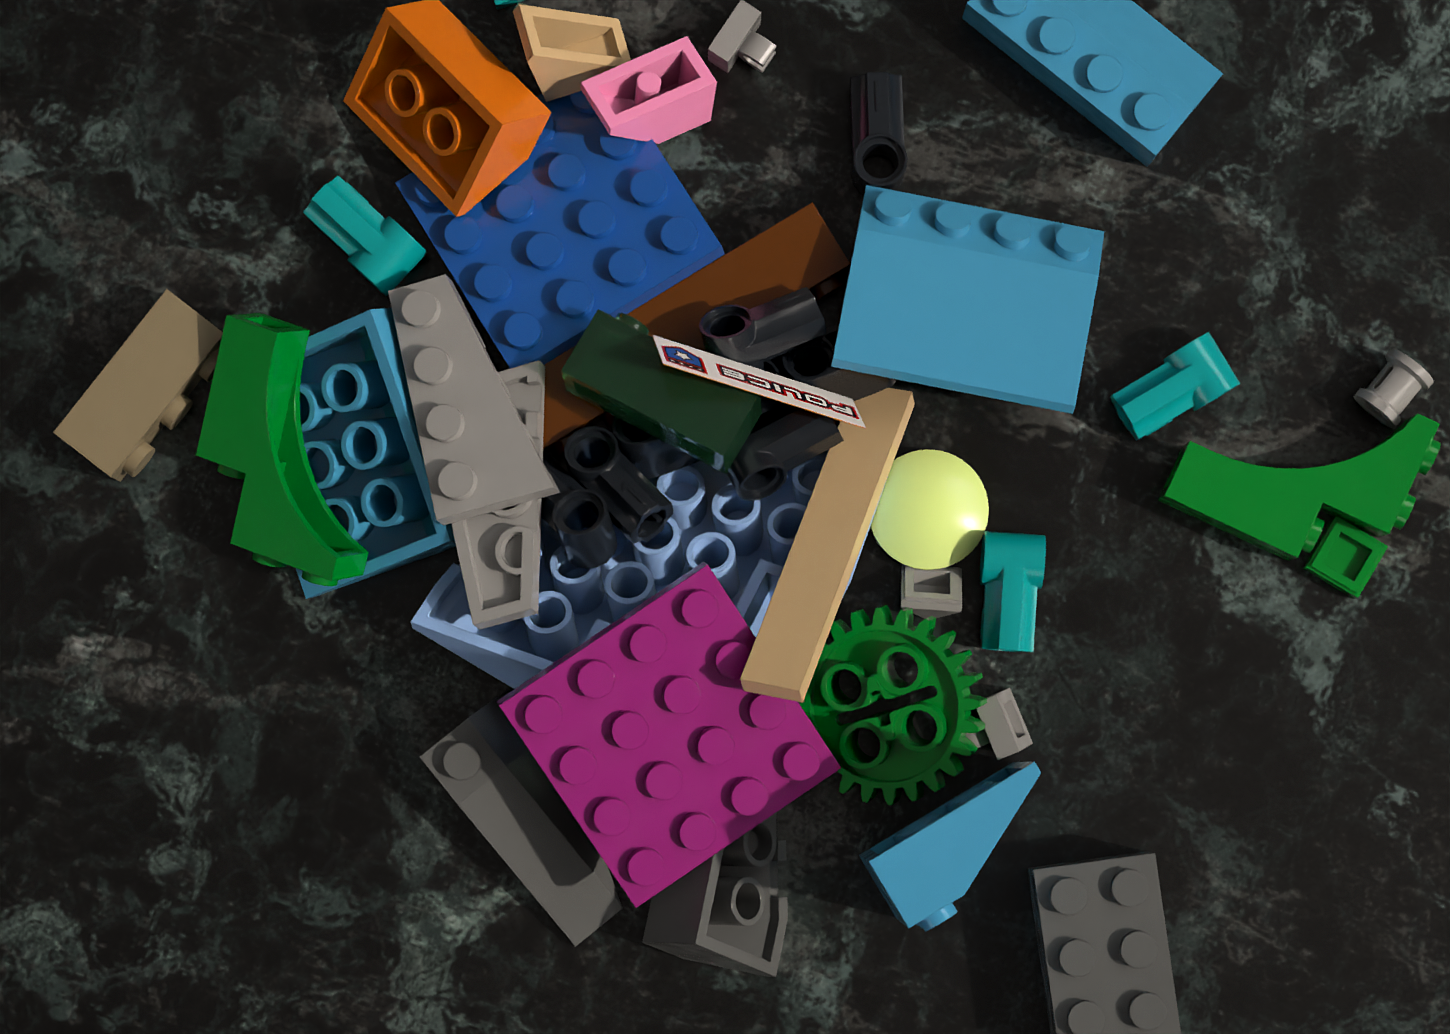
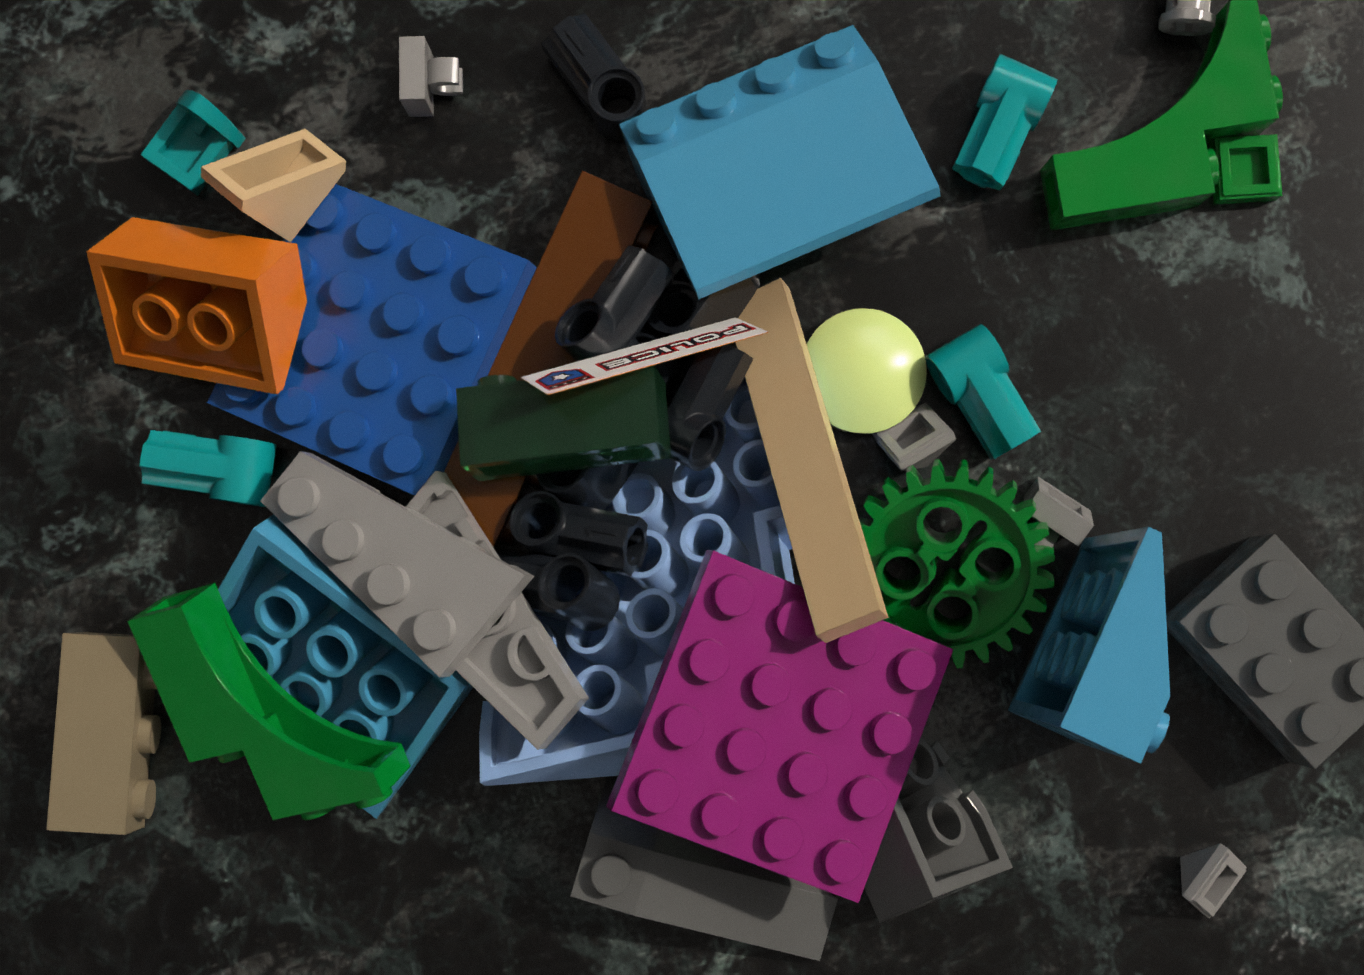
camera: 30 degrees left, 0 degrees up
(654, 94) = (379, 168): bright pink slope -> none

